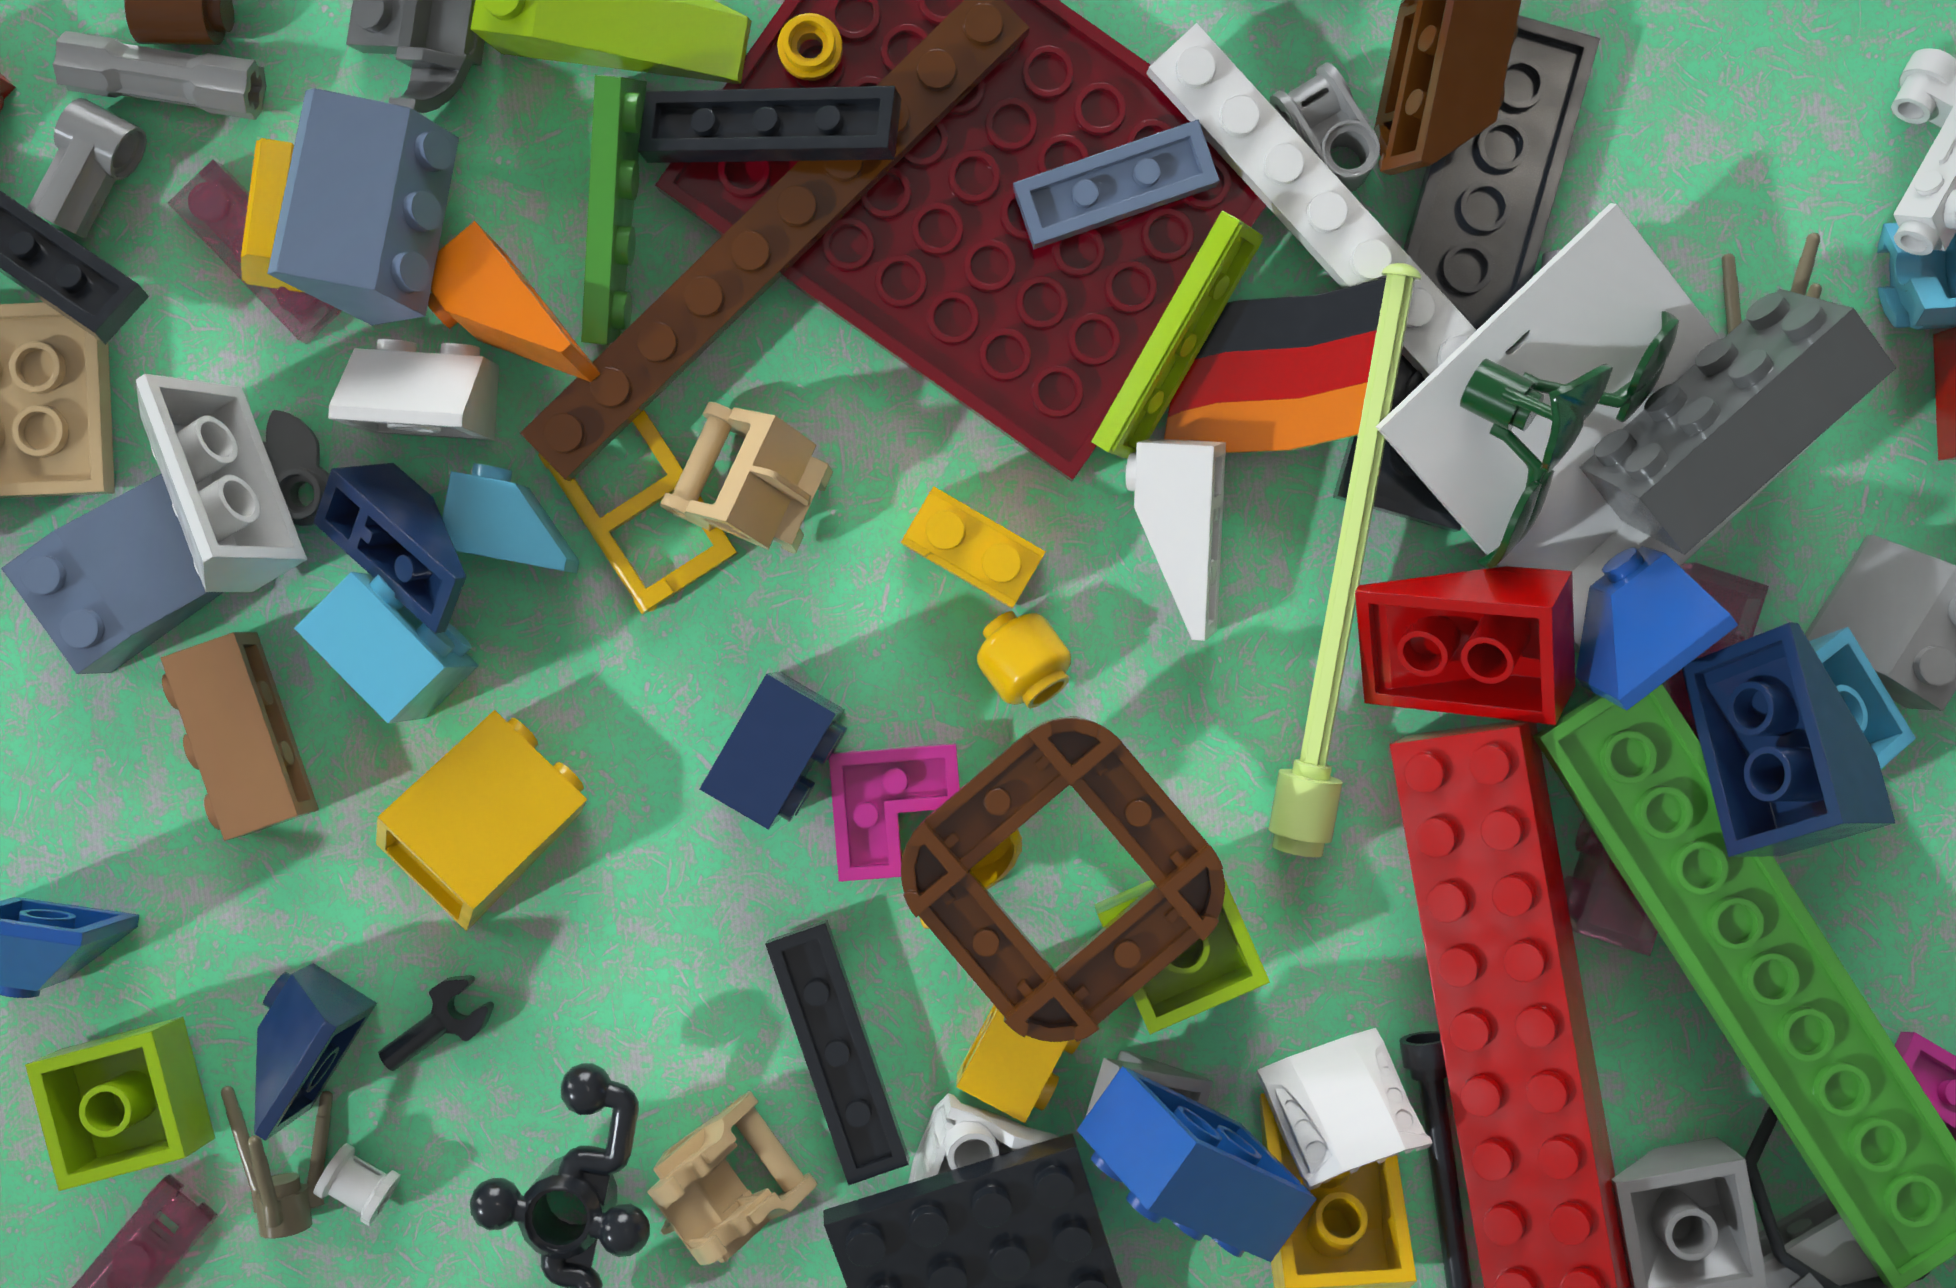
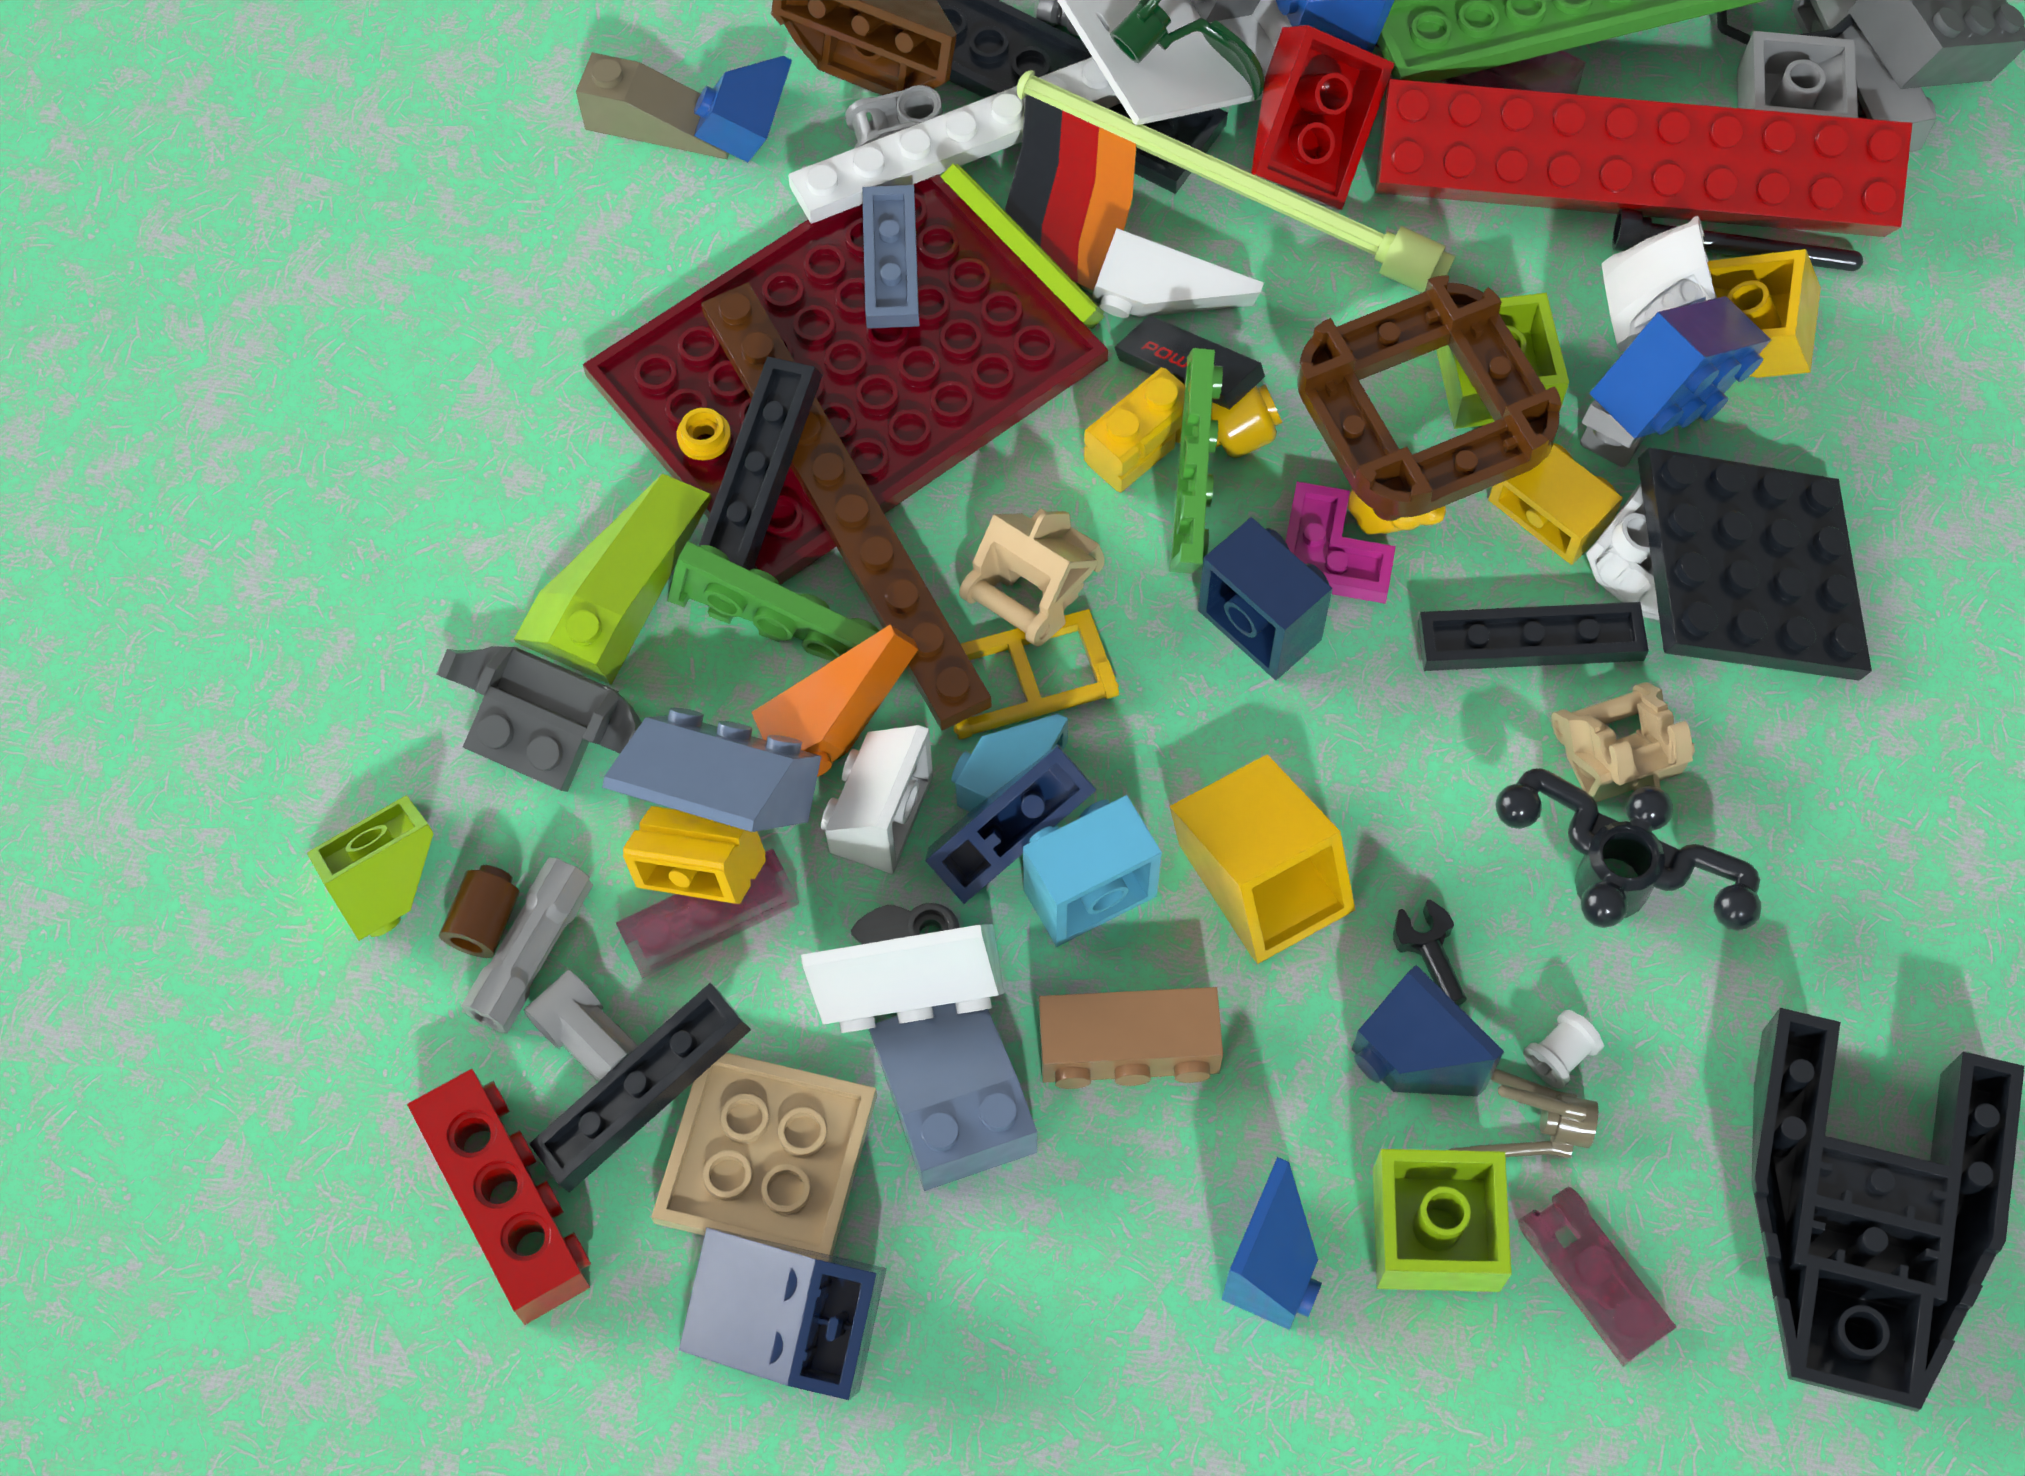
camera: 70 degrees left, 25 degrees down
(897, 631) = (1194, 483): none -> bright green wing
(1074, 581) = (1163, 345): none -> black tile

